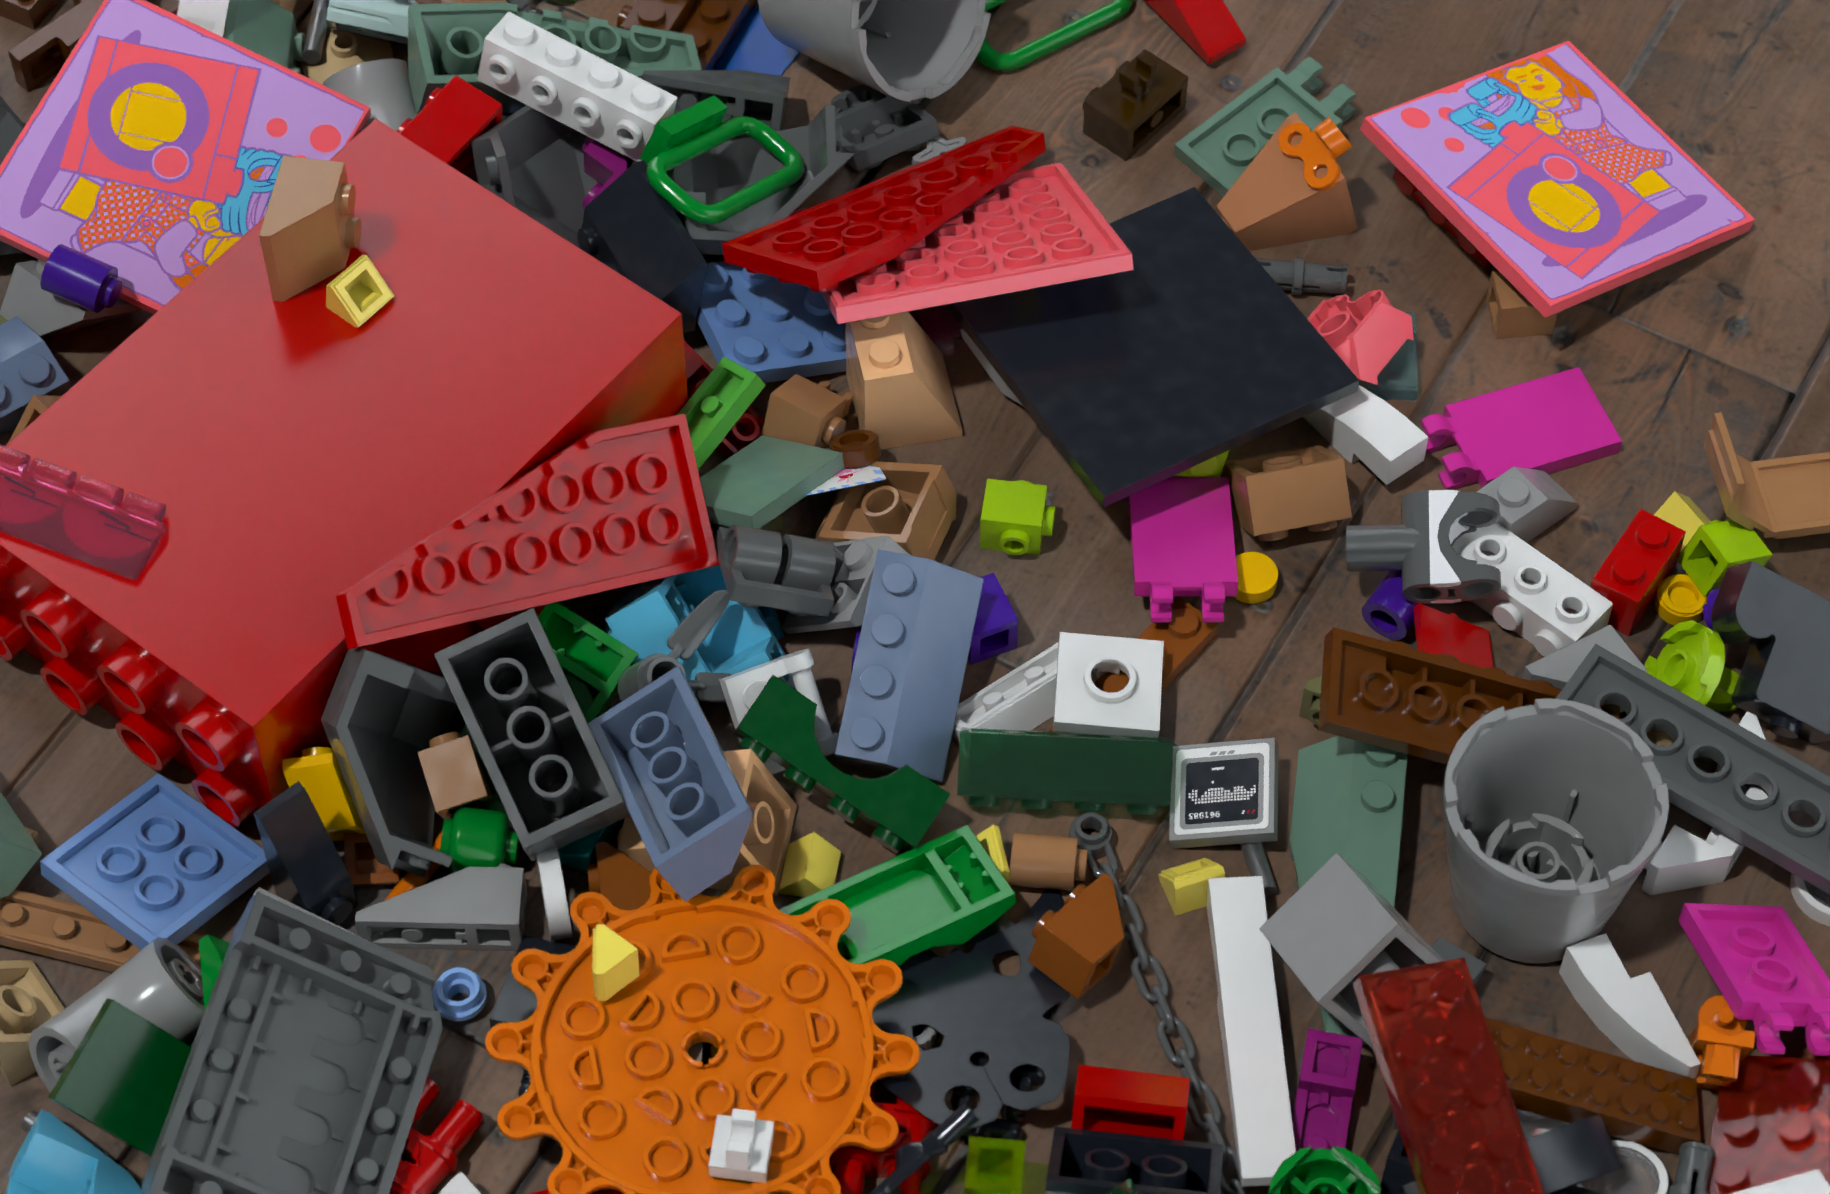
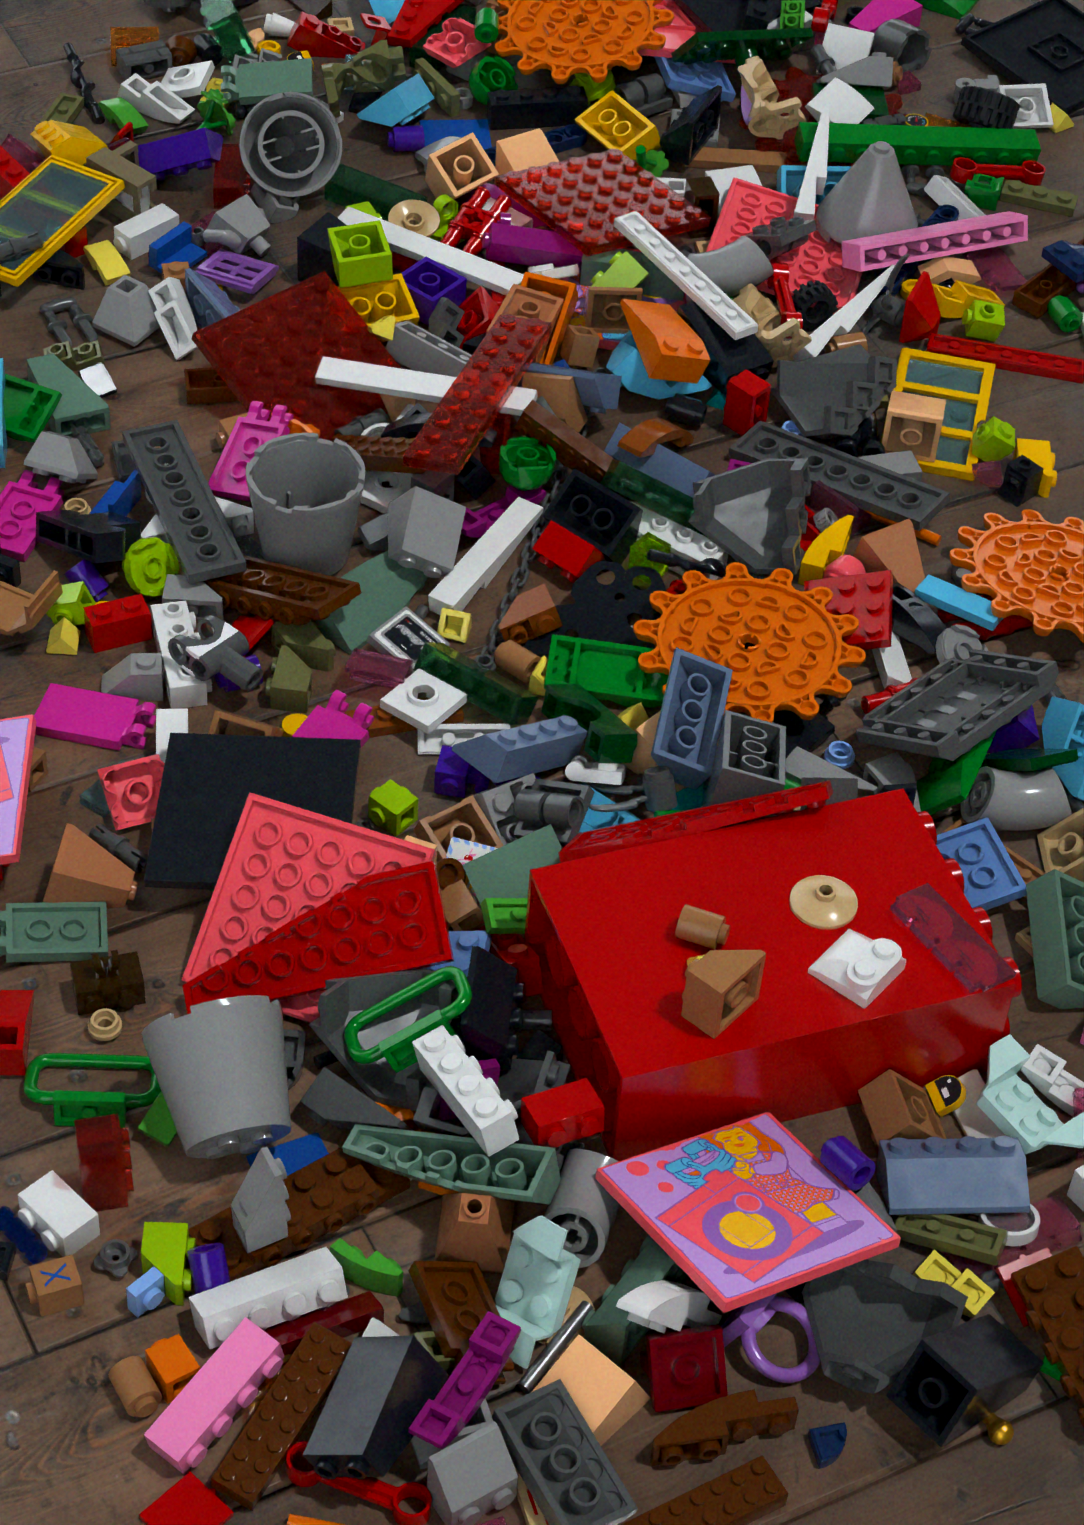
camera: 150 degrees left, 10 degrees down
(162, 398) = (859, 966): none -> white slope
(266, 491) = (823, 902): none -> tan dish
(394, 325) = (702, 927): none -> medium nougat brick
(613, 962) = (773, 672): light yellow slope -> none
(741, 1147) = (763, 589): white tile -> none
(1093, 67) = (101, 1019): none -> tan plate
(1216, 701) = (378, 668): none -> clear pink panel
(1307, 612) = (291, 682): none -> olive slope
(1316, 150) = (64, 844): orange piece -> none

